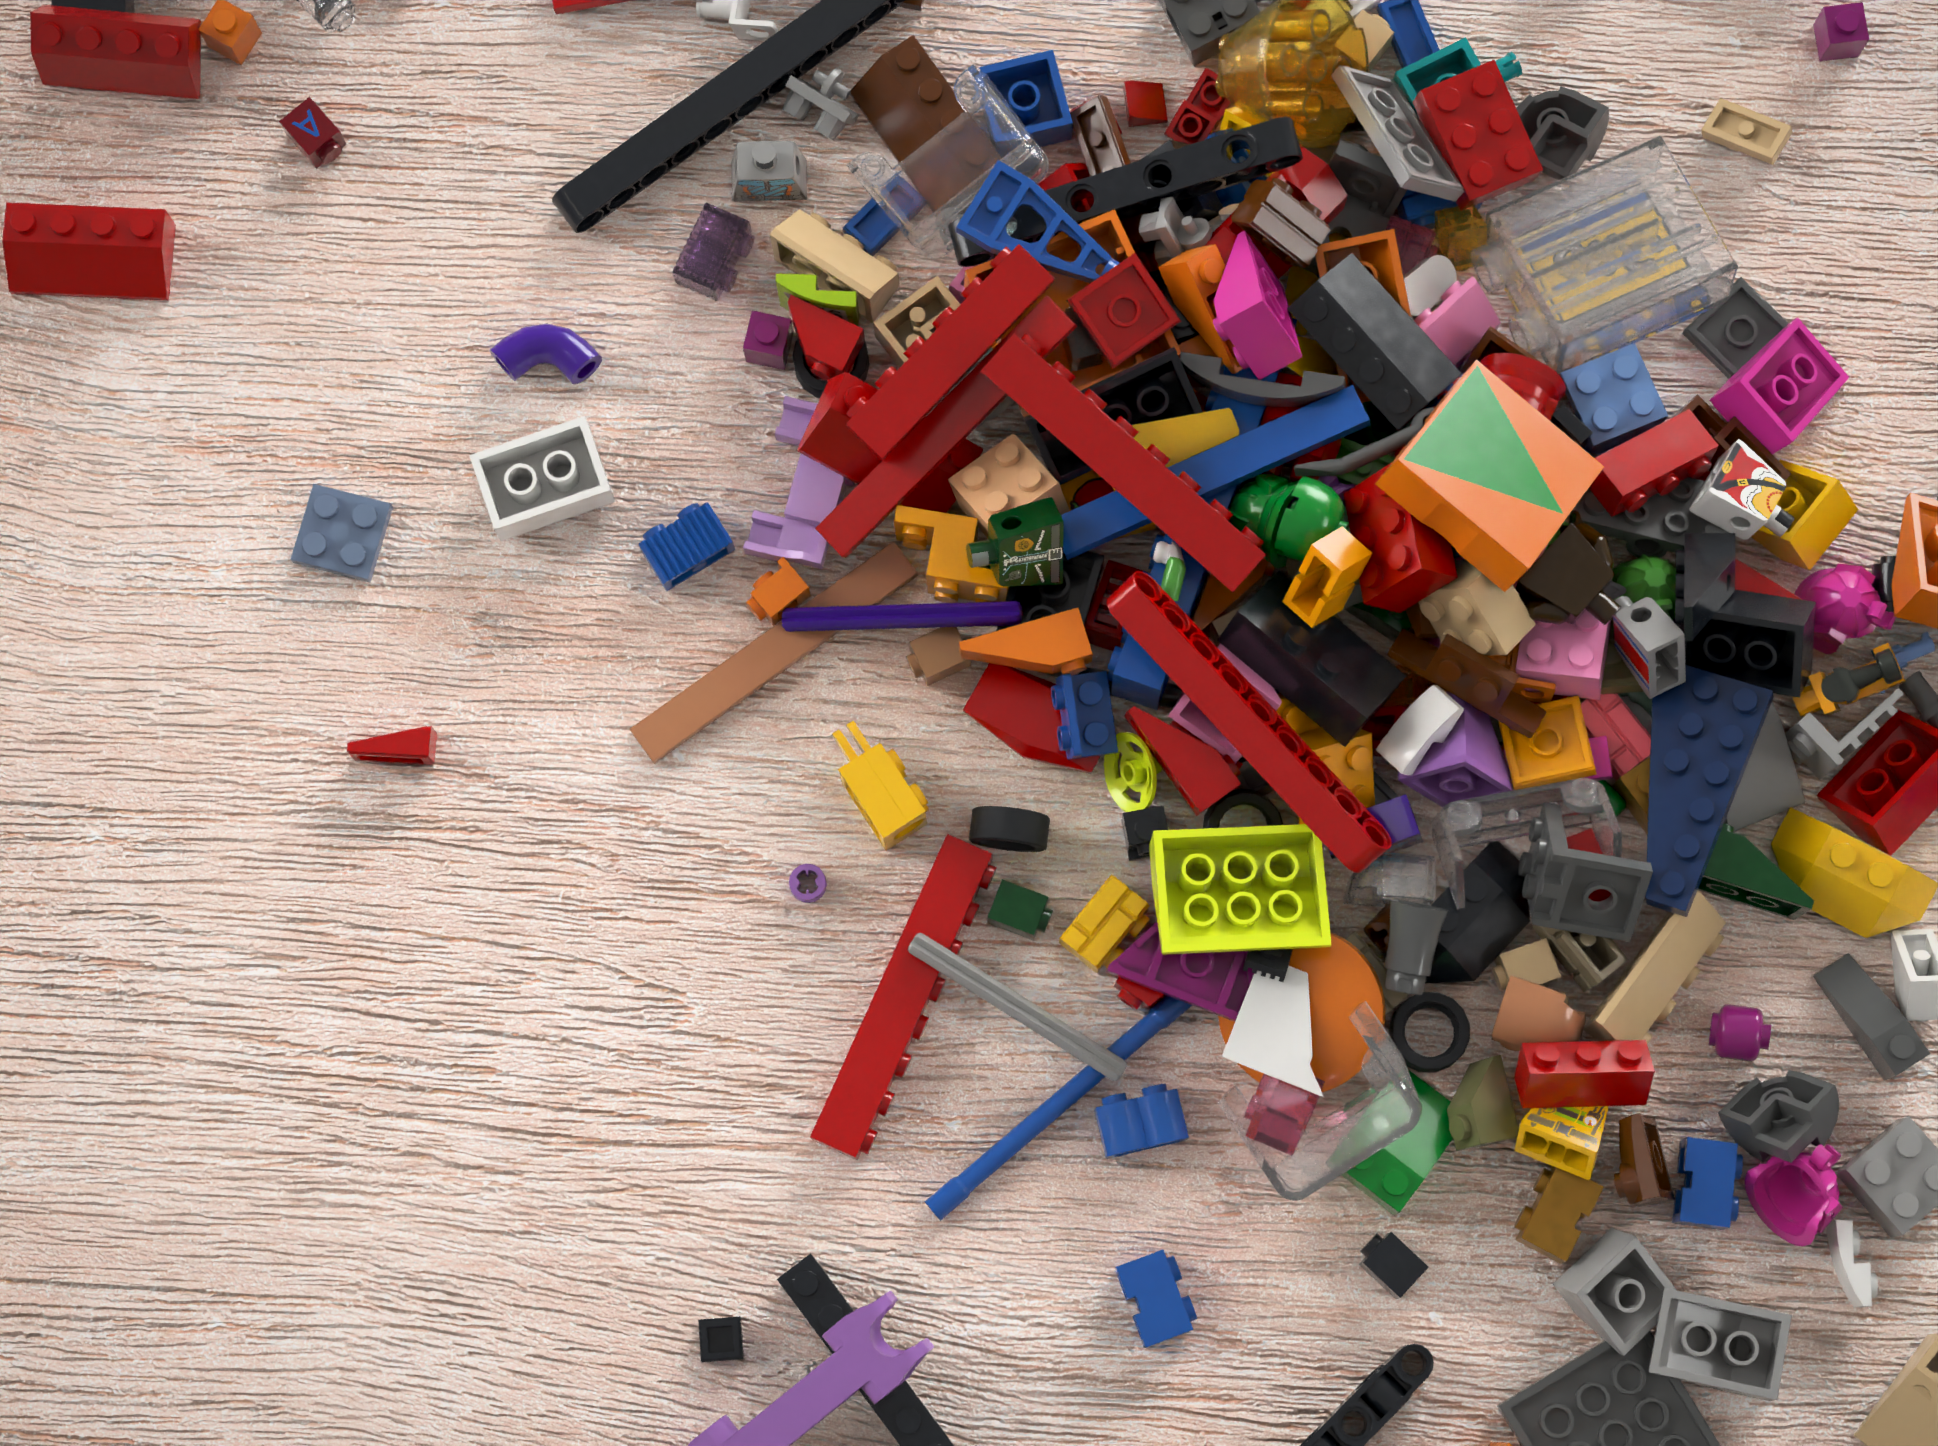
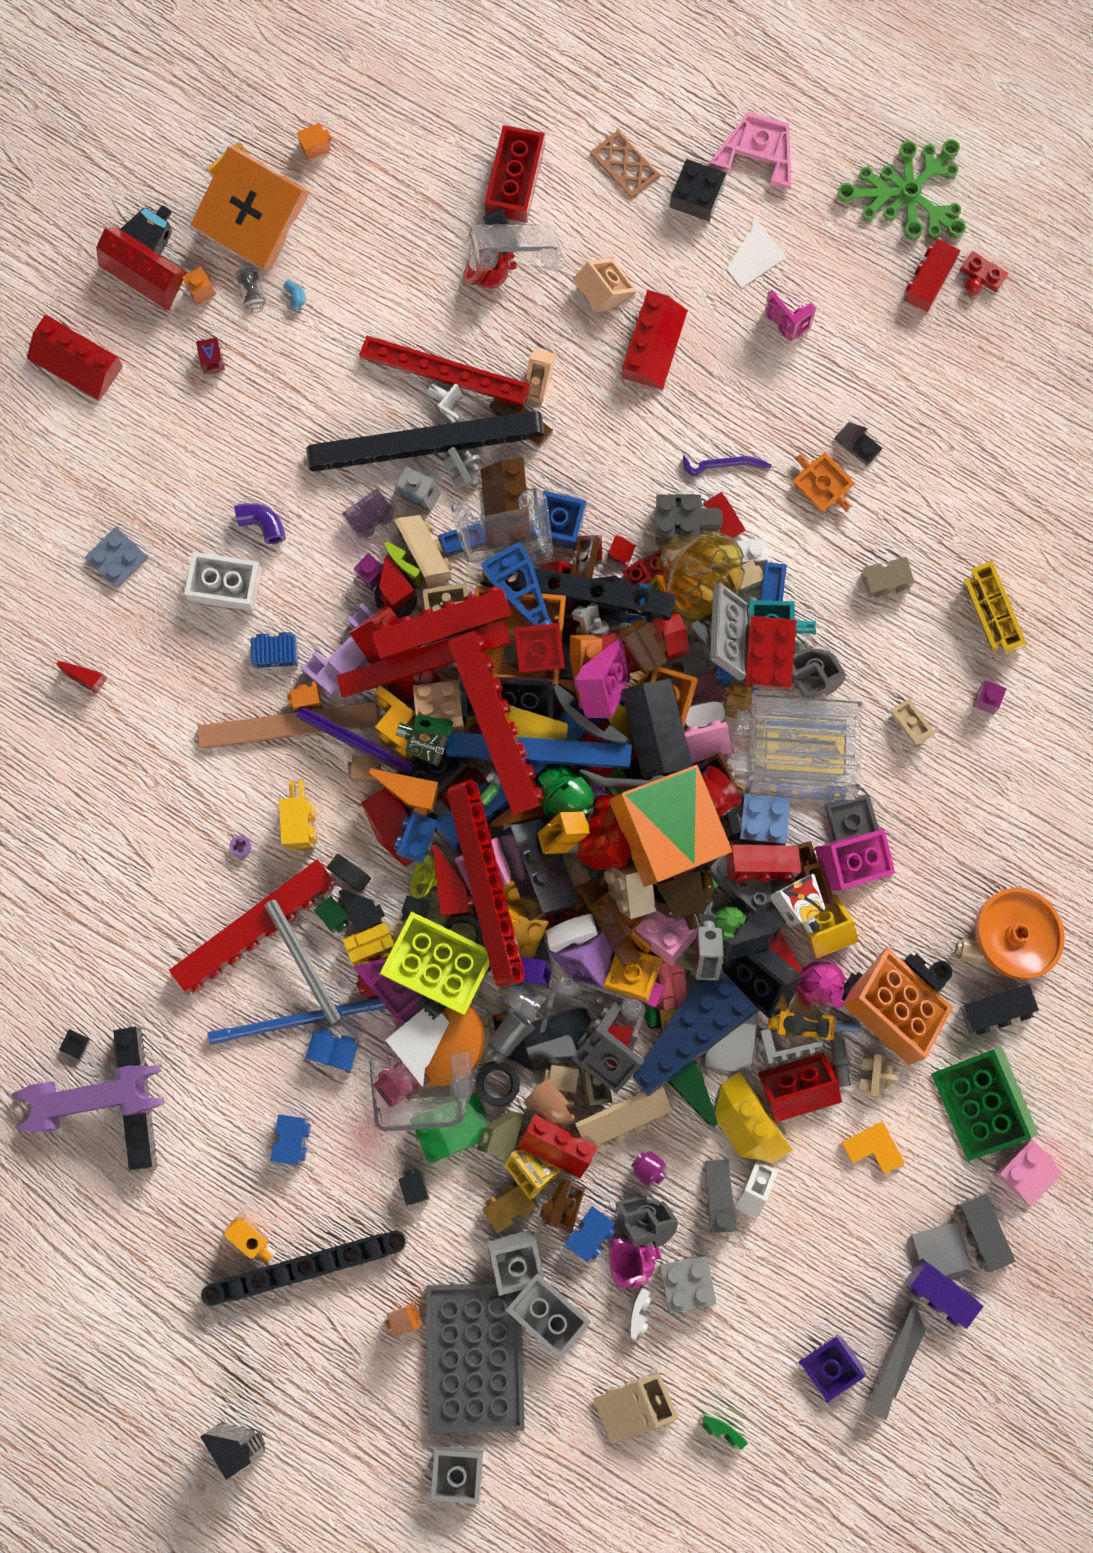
camera: 30 degrees right, 0 degrees up
(1062, 877) = (361, 911): none -> black slope

